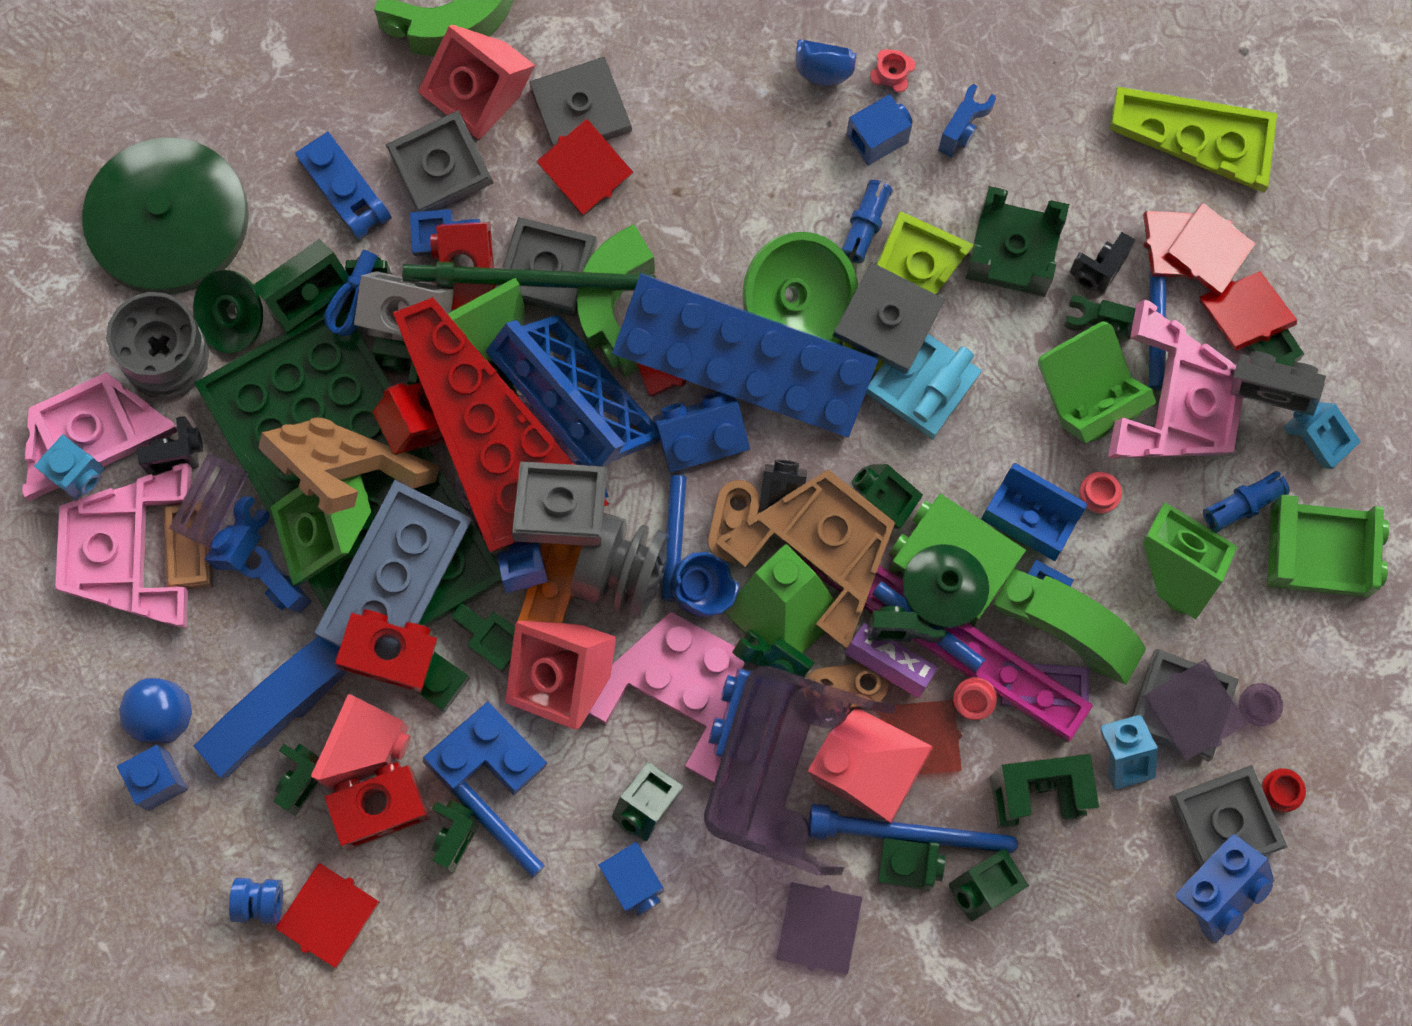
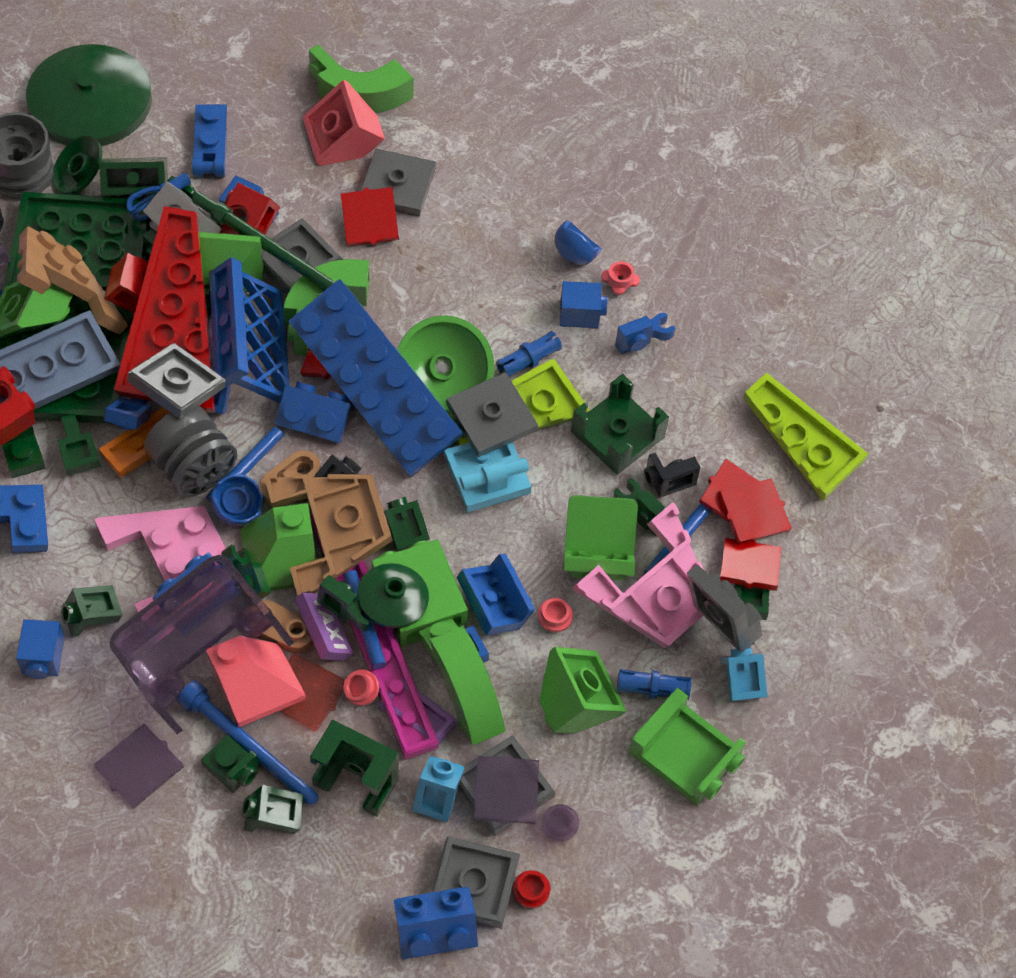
camera: 30 degrees right, 15 degrees down
(439, 163) = (280, 161): dark grey plate -> none
(558, 670) = (101, 491): coral slope -> none

